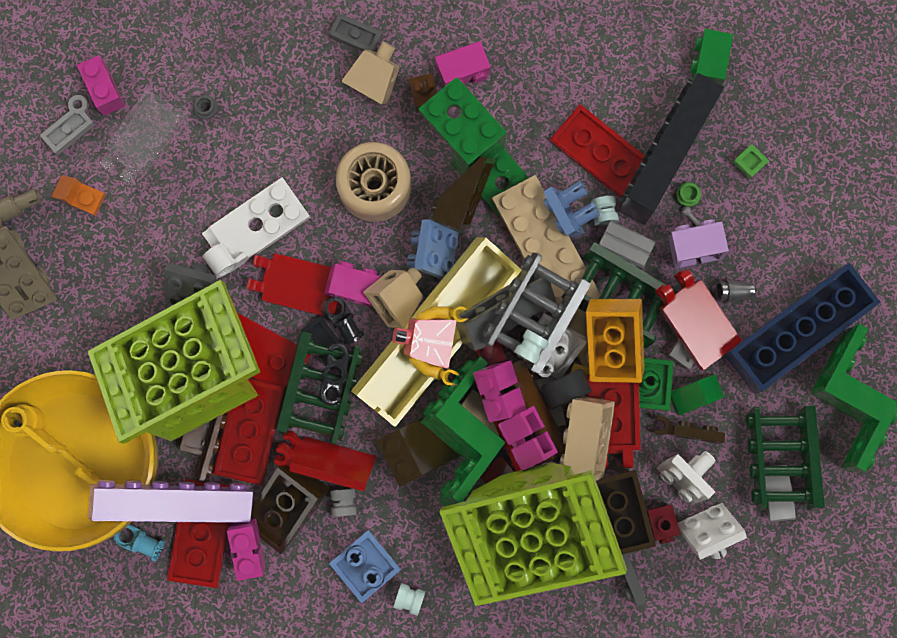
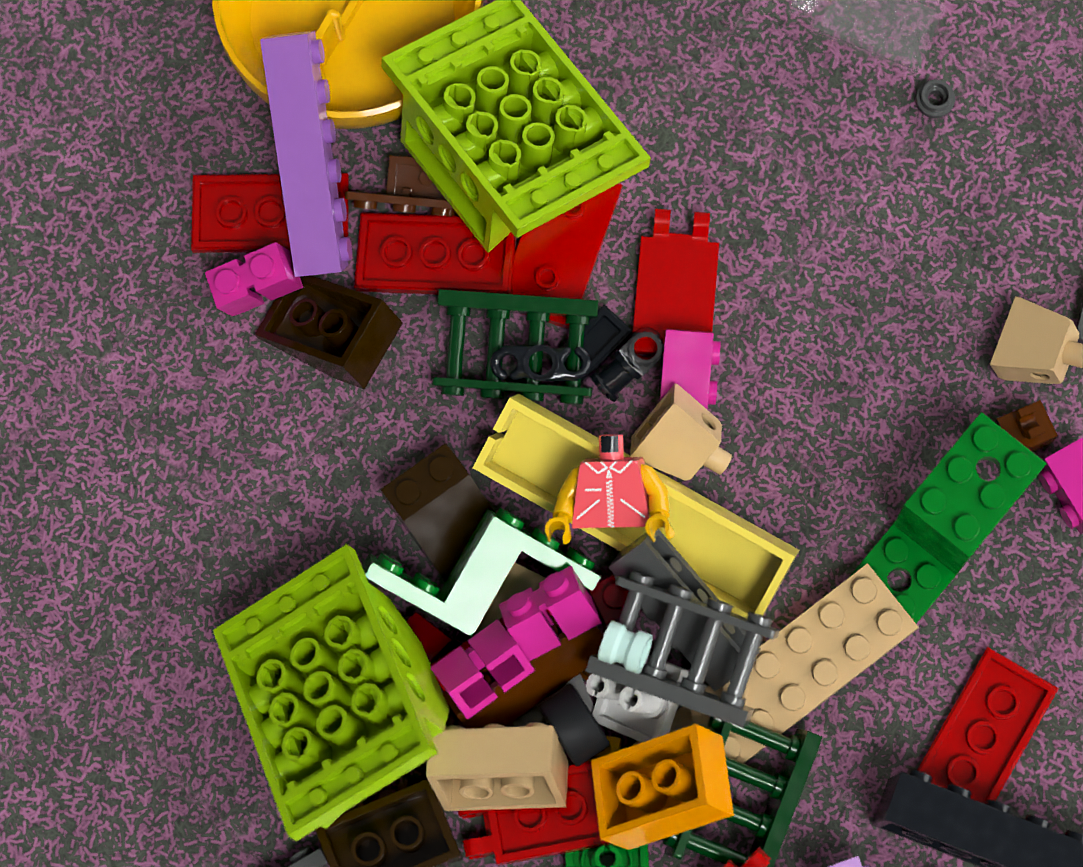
camera: 85 degrees right, 5 degrees down
(141, 543) = (242, 128): medium azure connector -> none
(184, 282) = (645, 114): dark grey plate -> none
(235, 242) = (734, 176): white hinge -> none
(326, 461) = (404, 374): red tile -> none
(343, 502) = (345, 413): light grey wheel -> none
(365, 566) = (253, 463): medium blue plate -> none
(373, 163) = (862, 343): tan wheel -> none
(409, 599) = (211, 537): light aqua wheel -> none
(435, 249) = (767, 486): medium blue plate -> none
(460, 201) = (852, 514): dark brown slope -> none
(559, 203) = (865, 682): medium blue plate -> none
(605, 206) = (882, 754): light aqua wheel -> none
(627, 244) = (829, 796): light grey brick -> none

